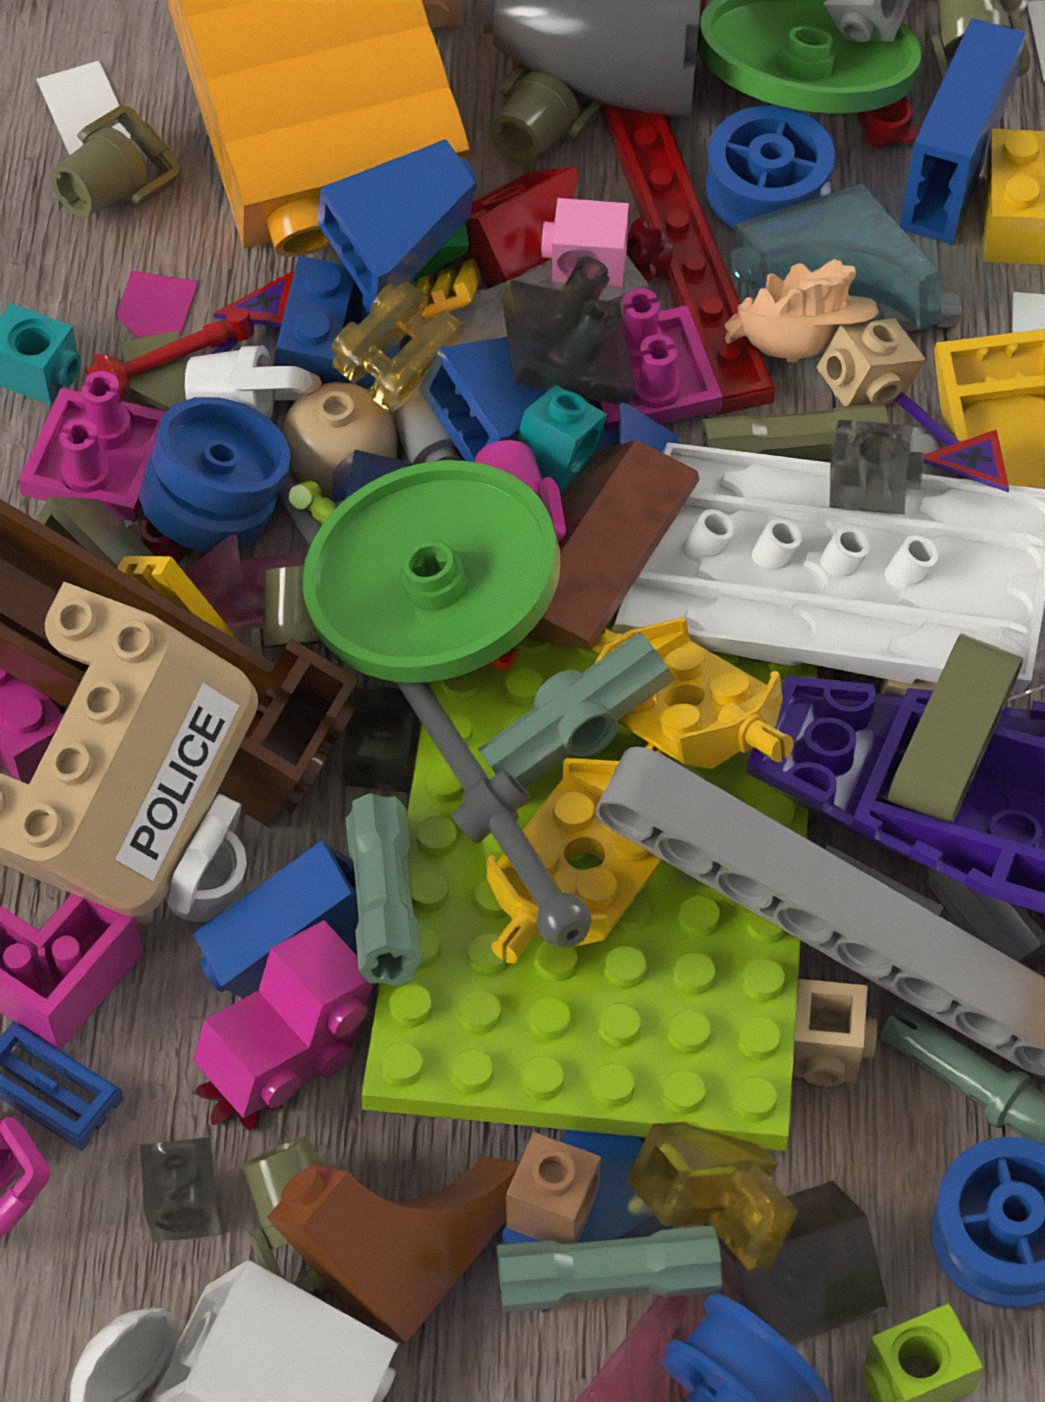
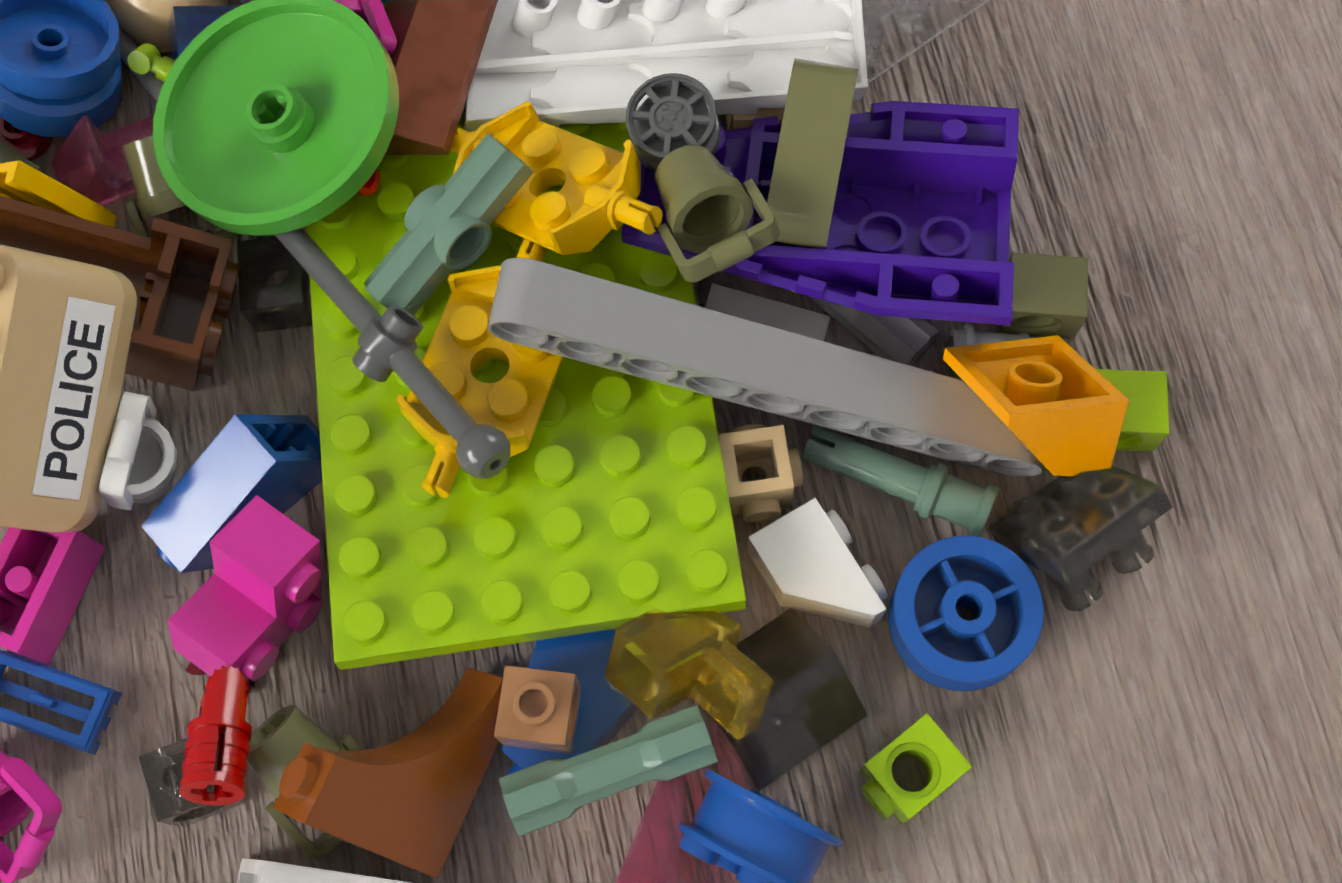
camera: 10 degrees left, 15 degrees up
(227, 1144) = (220, 728): none -> red hinge
(386, 927) = (316, 487): sand green axle -> none
(826, 673) = (673, 116): none -> dark grey wheel
(840, 757) = (709, 213): none -> olive piece
(865, 1145) = (813, 570): none -> white slope

